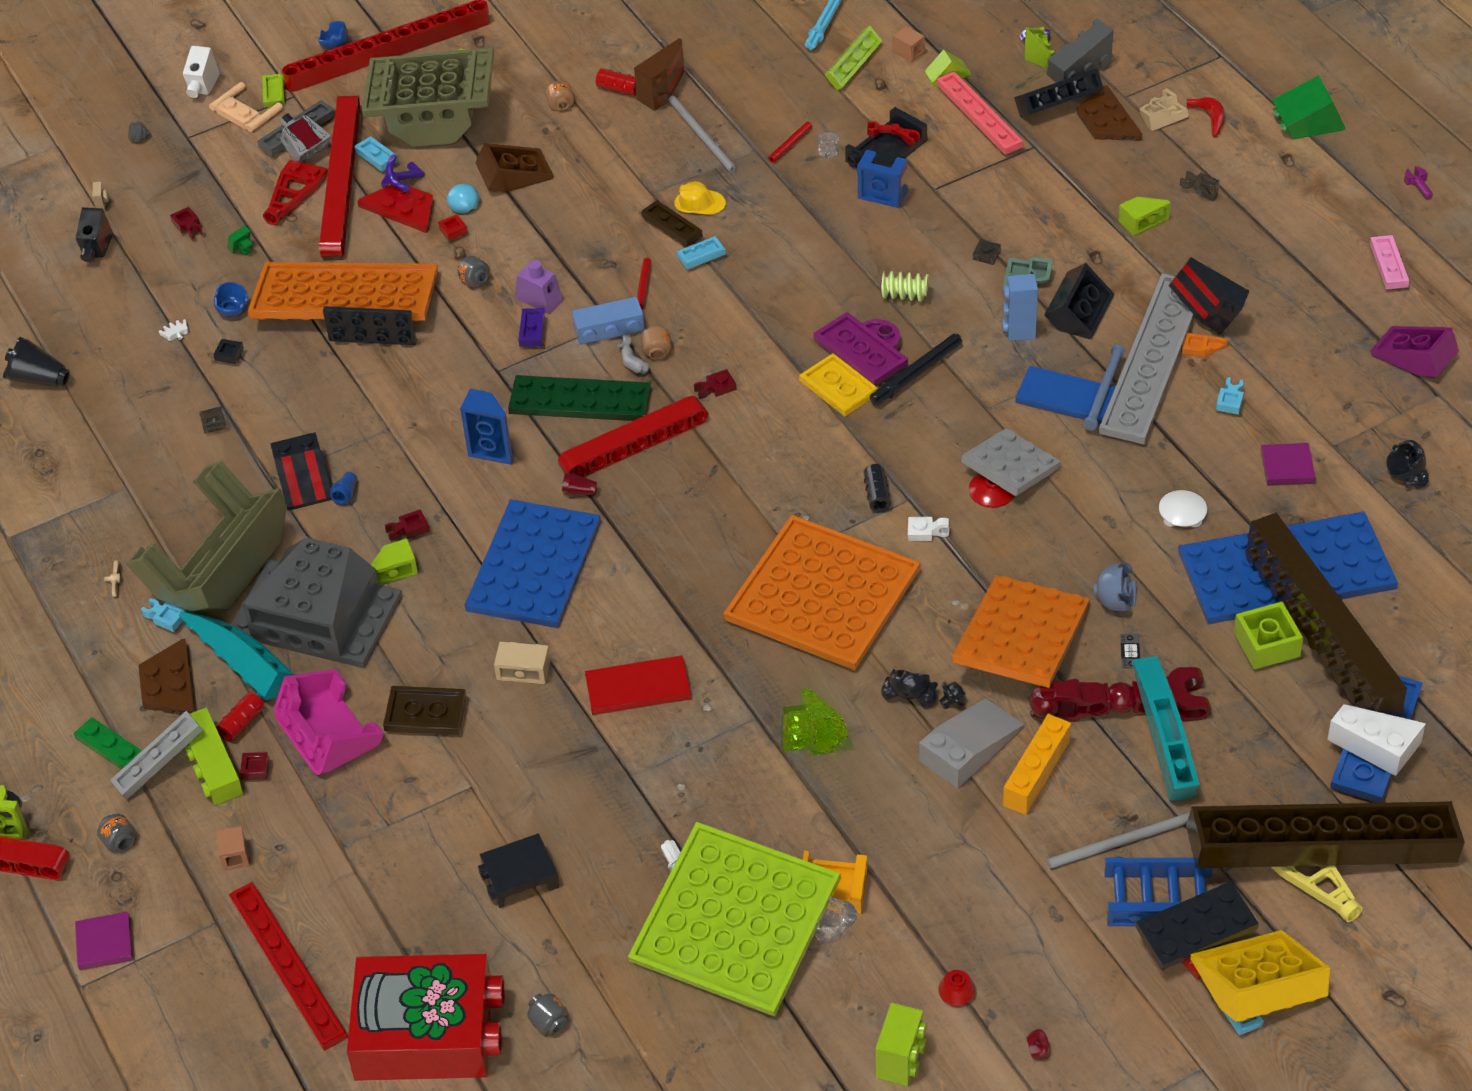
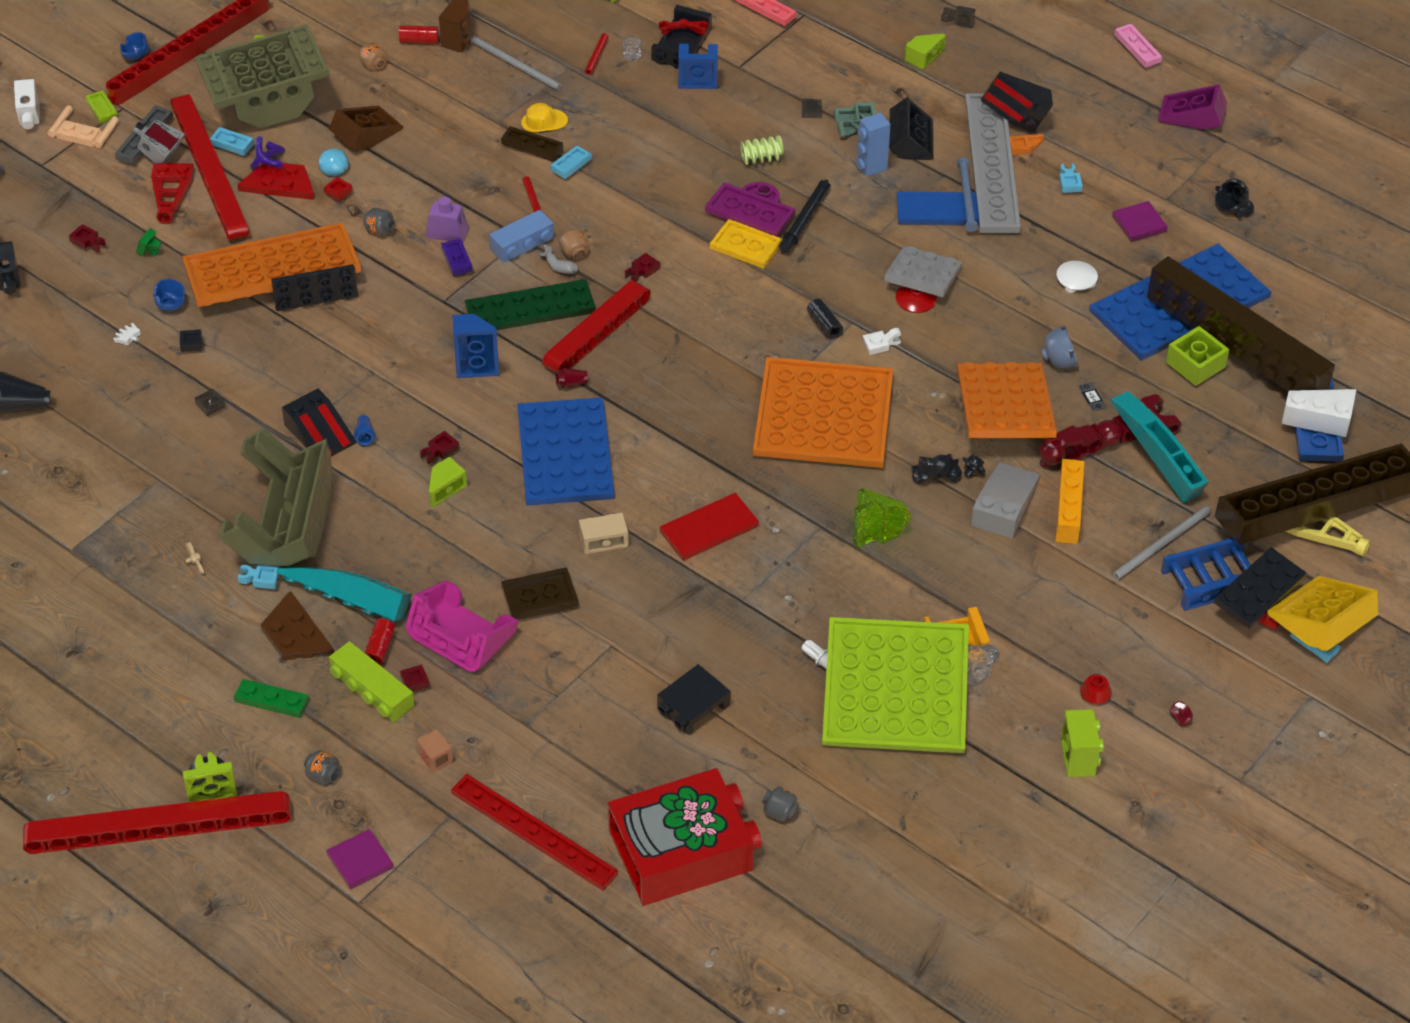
camera: 25 degrees left, 0 degrees up
(156, 755) = (326, 692): light grey plate -> none
(319, 603) = (396, 530): dark grey wedge -> none

